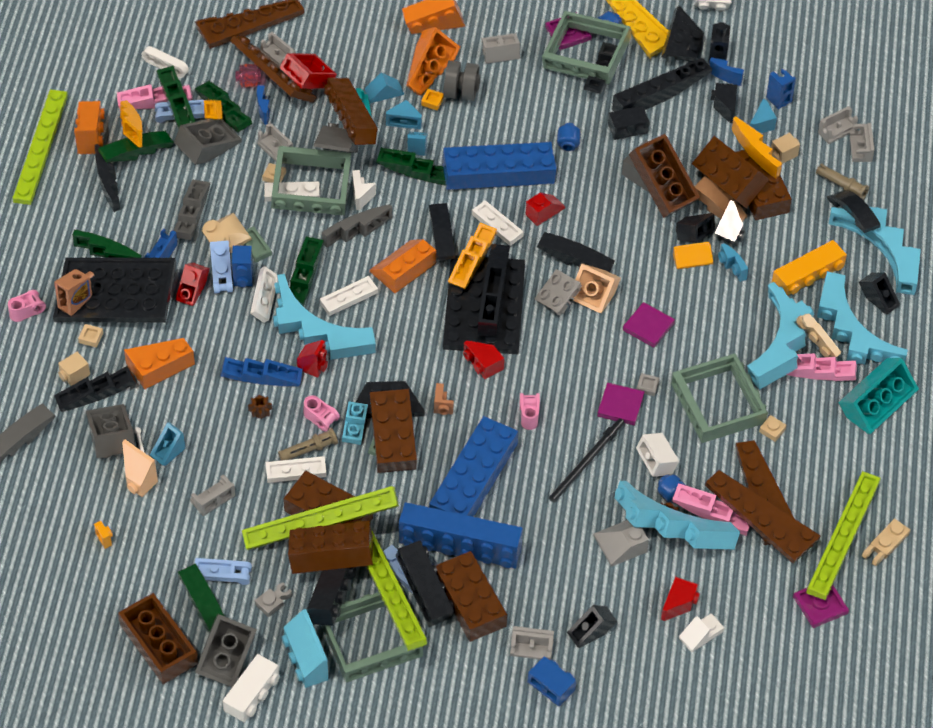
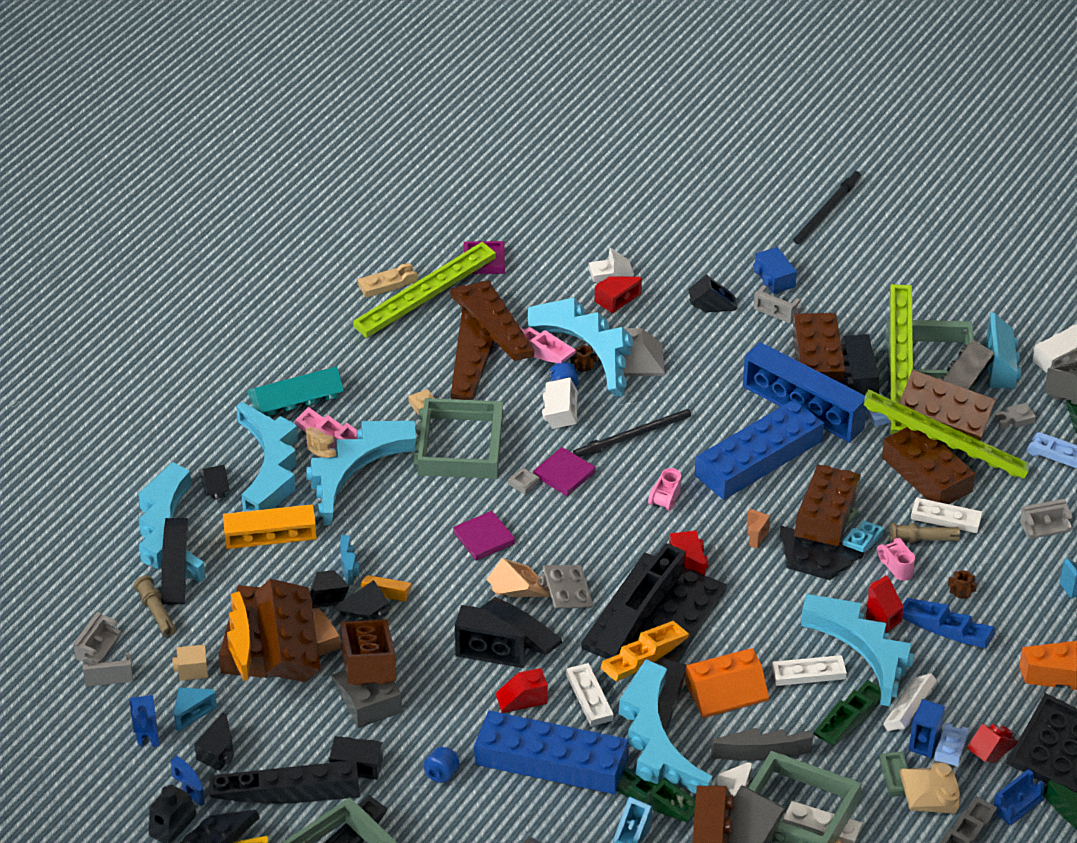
camera: 155 degrees left, 10 degrees down
(435, 186) = (646, 733): none -> medium azure arch
(590, 225) = (488, 638): none -> black slope

